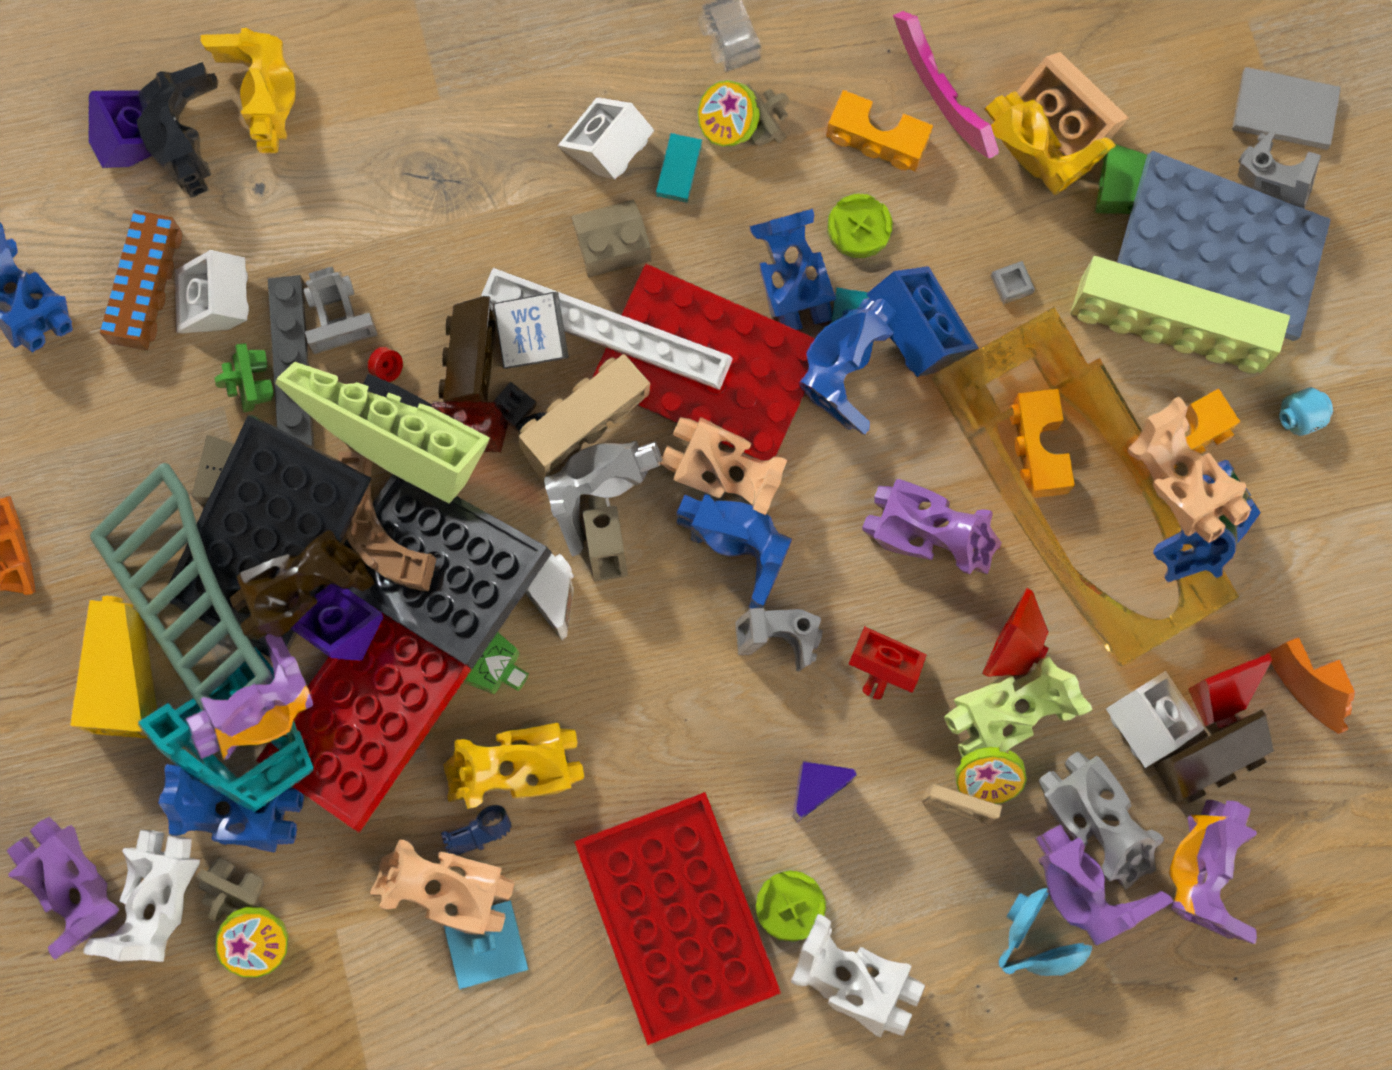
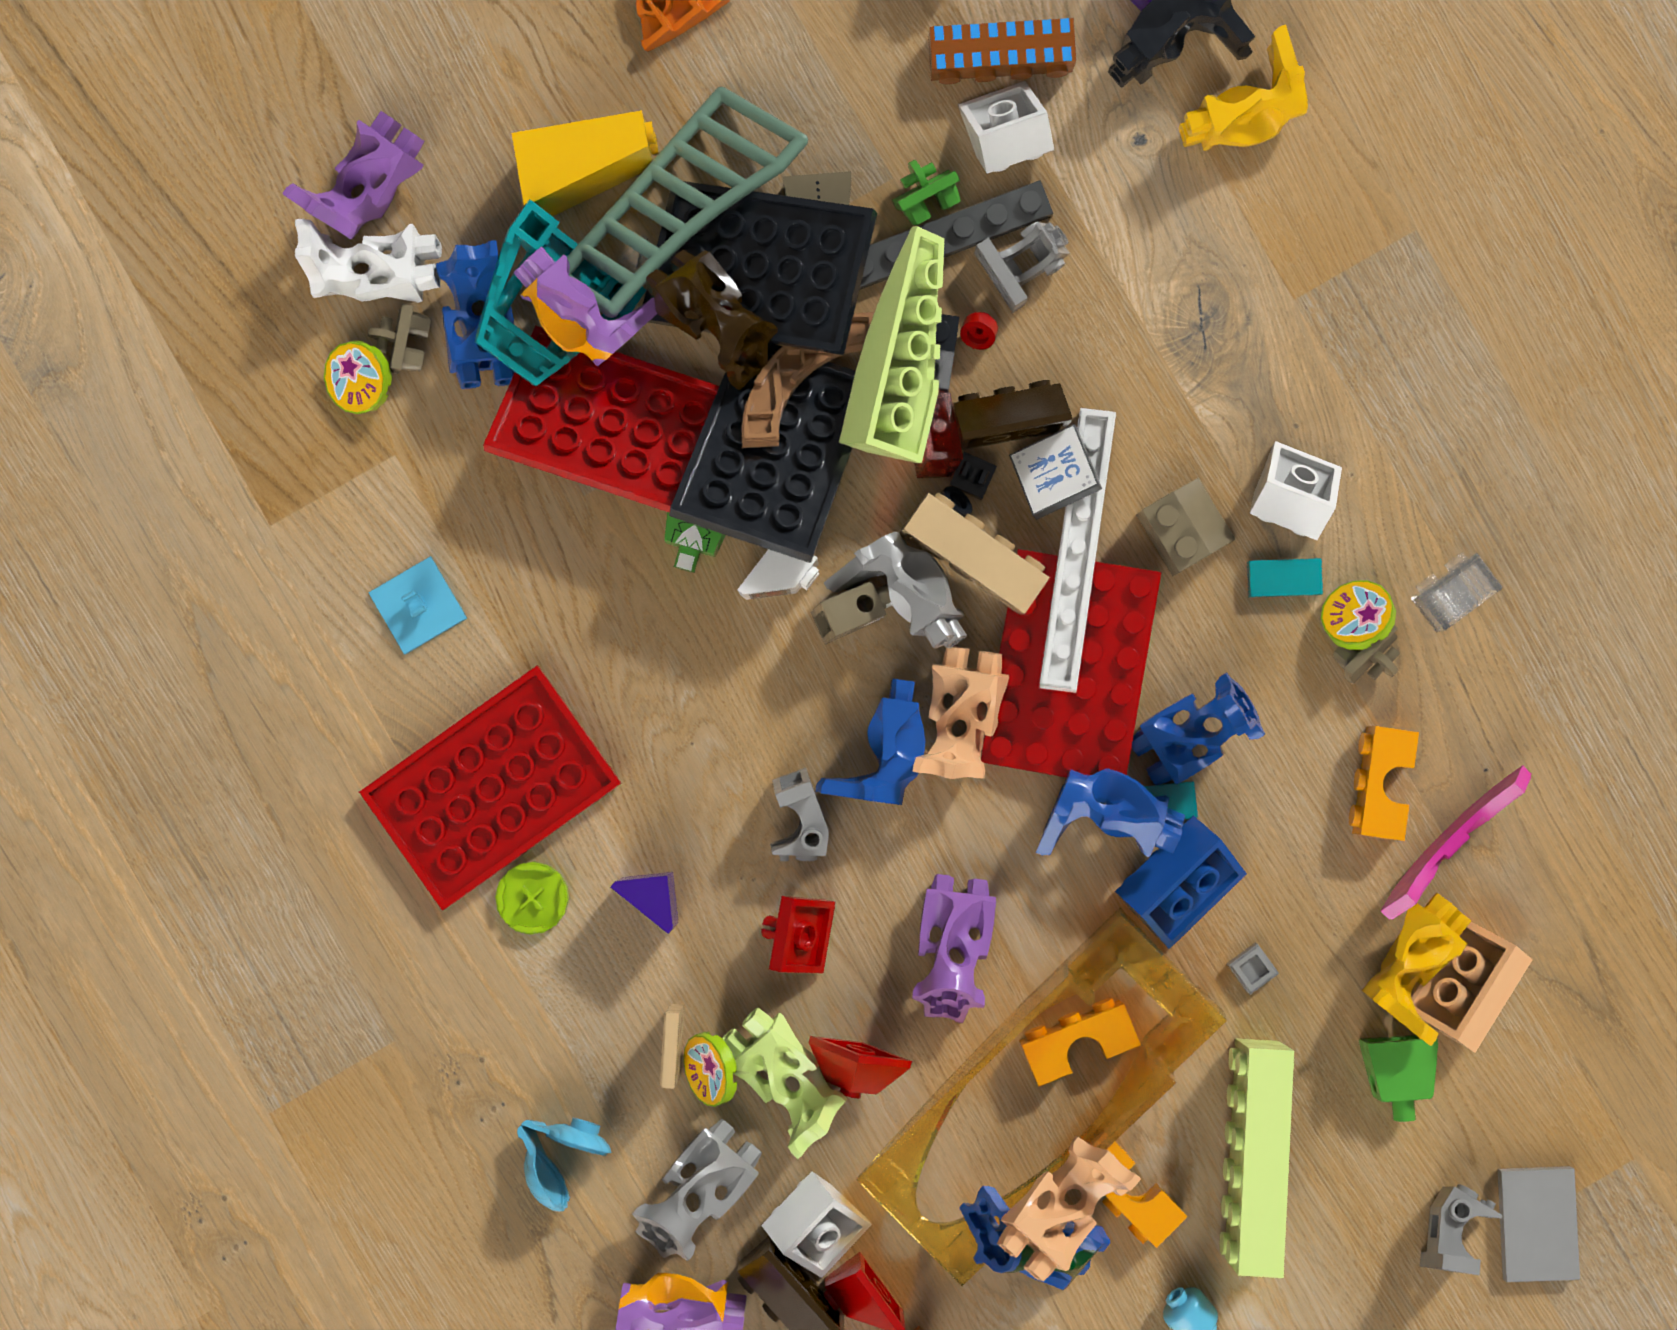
camera: 75 degrees right, 10 degrees up
(340, 624) = (686, 368): dark purple slope -> none
(405, 874) = (454, 509): light nougat hips -> none
(476, 768) = (577, 549): yellow hips -> none
(477, 832) = (519, 565): dark blue connector -> none
(859, 226) = (1272, 788): lime tile -> none
(862, 997) = (464, 1006): white hips -> none
(1078, 893) = (618, 1185): medium lavender hips -> none
(1224, 238) = (1358, 1187): sand blue plate -> none

